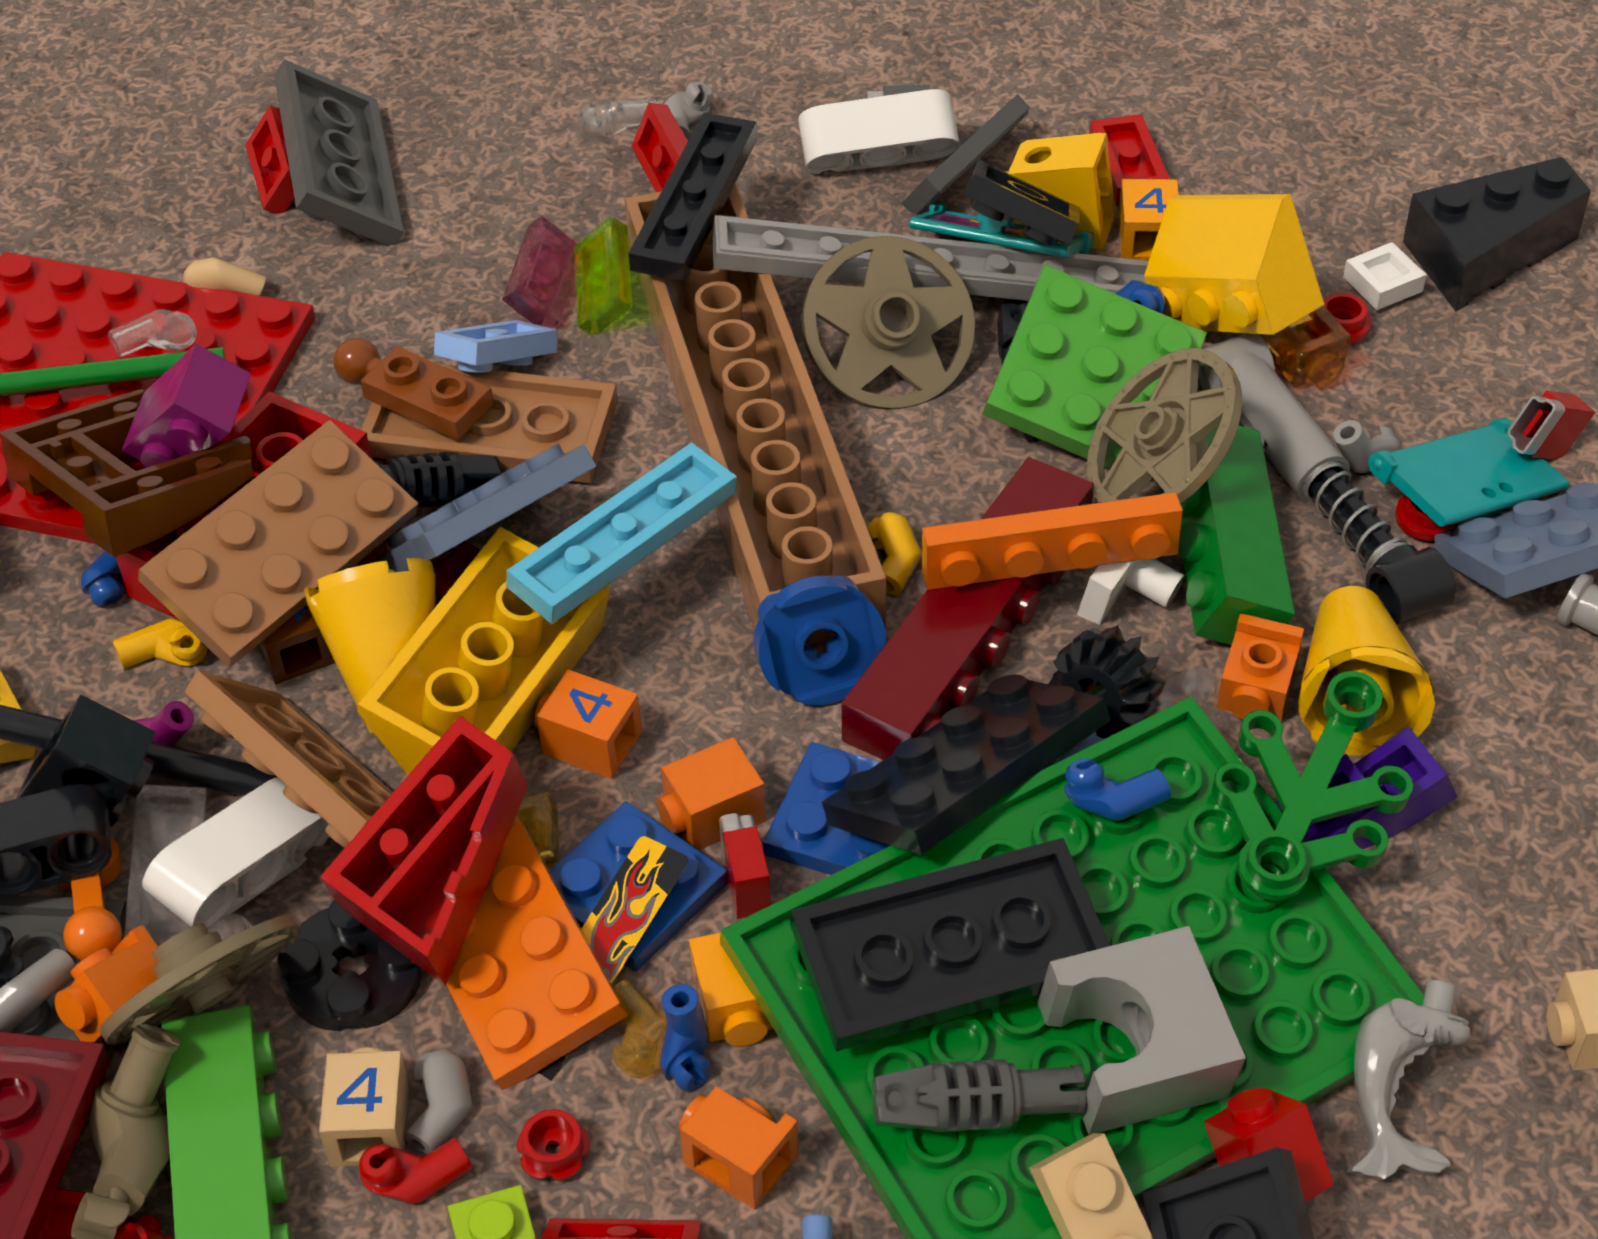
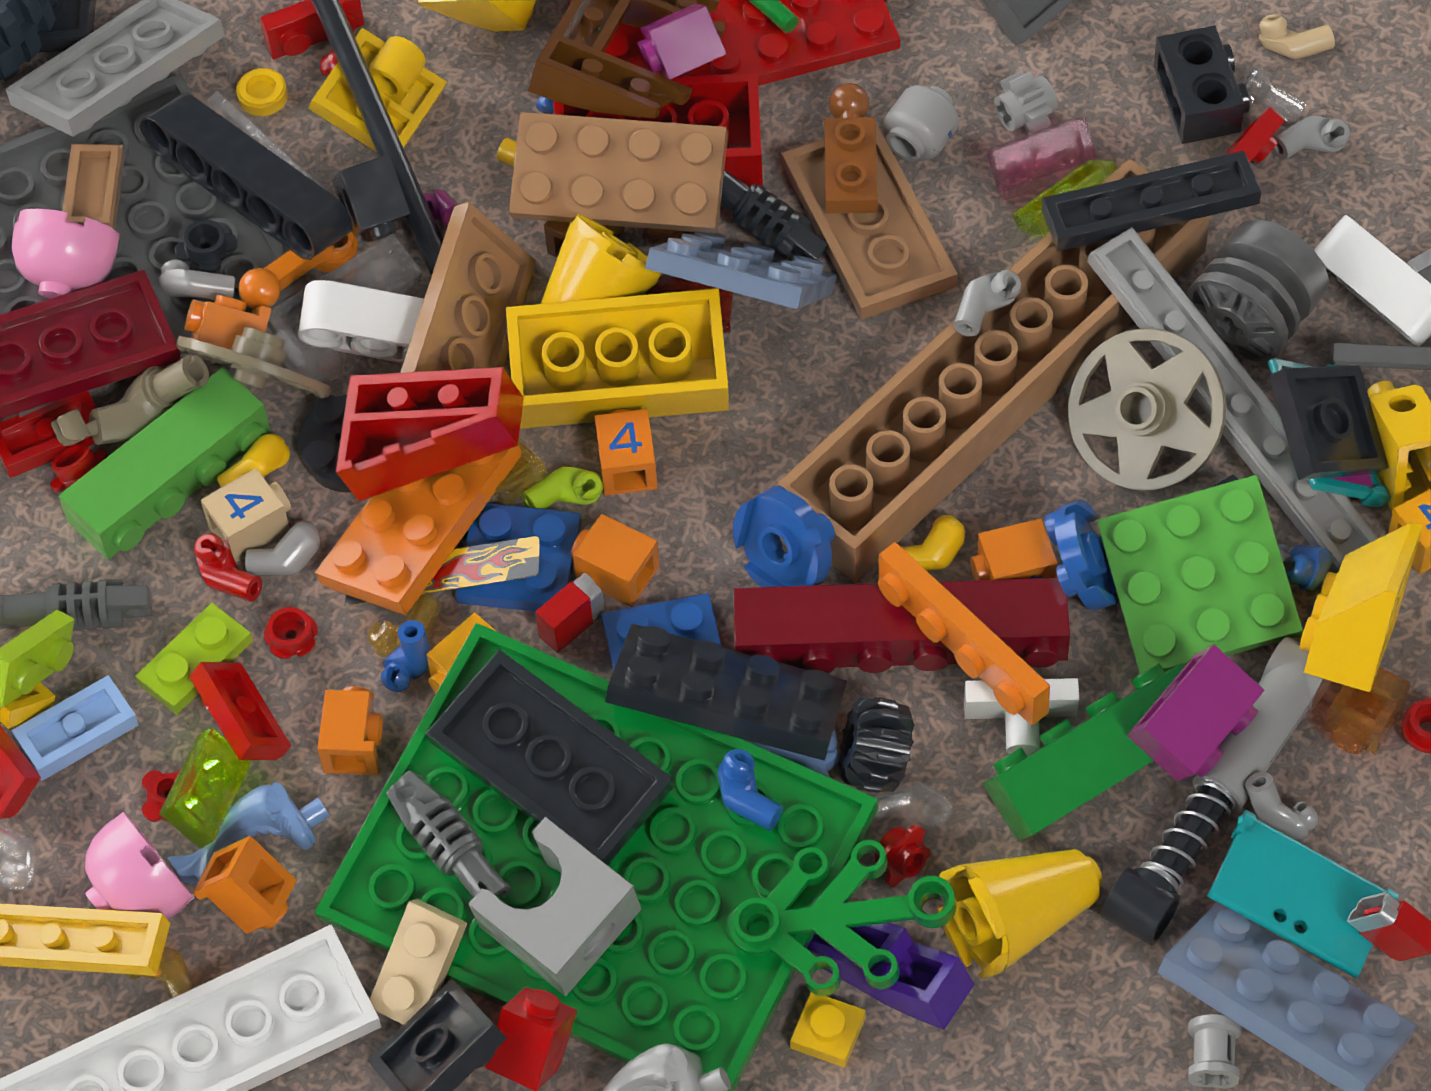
camera: 60 degrees right, 10 degrees up
(303, 1063) = (265, 454): none -> yellow arm
(417, 316) = (920, 123): none -> light grey head
(476, 254) = (1025, 102): none -> light grey gear
(502, 342) = (935, 174): light blue plate -> none
(568, 145) = (1200, 84): none -> black brick
(580, 82) = (1292, 44): none -> tan arm
(580, 798) = (566, 486): none -> lime arm
(620, 532) = (766, 363): medium azure plate -> none
(690, 347) = (984, 296): none -> light grey arm
(828, 180) = (1259, 288): none -> flat silver wheel
(966, 484) = (1014, 553): none -> orange brick
(1011, 431) = (1083, 555): none -> blue plate
(1168, 432) = (1125, 649): dark tan wheel -> none
(1229, 724) = (904, 853): none -> red plate
(1260, 667) = (992, 822): orange brick -> none
(1276, 437) = (1197, 714): none -> magenta brick
(1393, 896) = (828, 1029): none -> yellow plate

